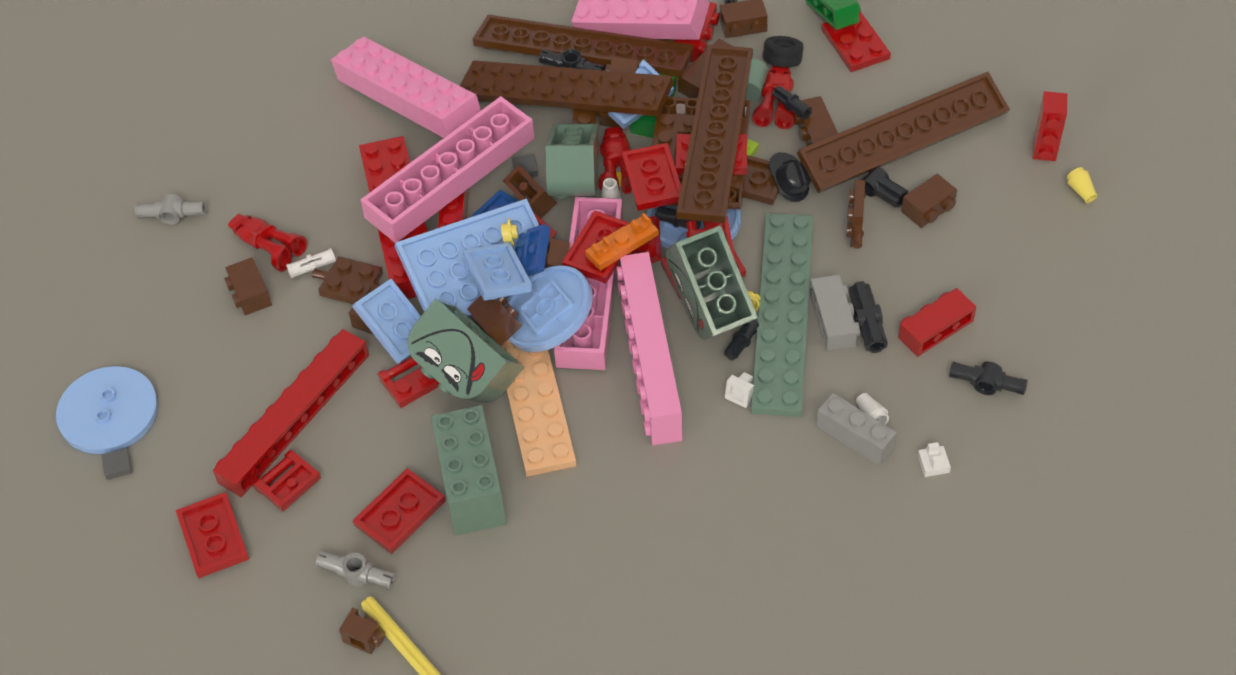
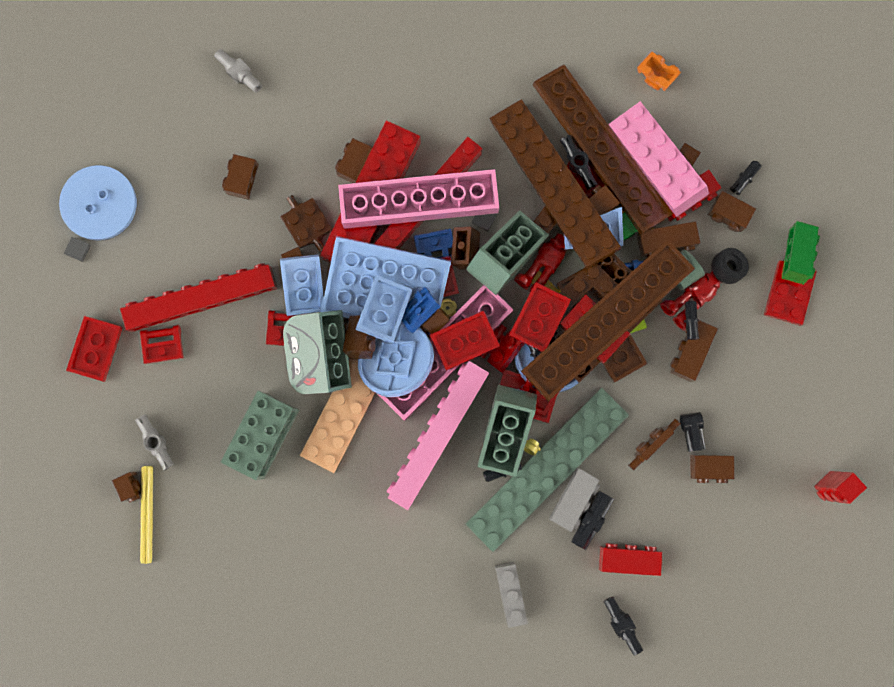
camera: 35 degrees right, 30 degrees up
(259, 233) = (277, 135): red piece -> none
(311, 262) = (293, 188): white pin -> none
(350, 194) = (353, 160): none -> reddish brown brick
(399, 511) = (208, 421): red plate -> none
(405, 87) = (452, 96): bright pink brick -> none
(509, 232) = (417, 282): light yellow plate -> none
(610, 189) = (511, 296): white cone -> none
(622, 242) = (477, 353): orange plate -> none
(739, 389) = (468, 507): white tile -> none
(789, 176) = (641, 372): black piece -> none
(872, 408) = (533, 587): white cone -> none
(902, 132) = (745, 403): reddish brown plate -> none
(934, 460) = (539, 650): white tile -> none
(1081, 183) = (822, 538): light yellow cone -> none

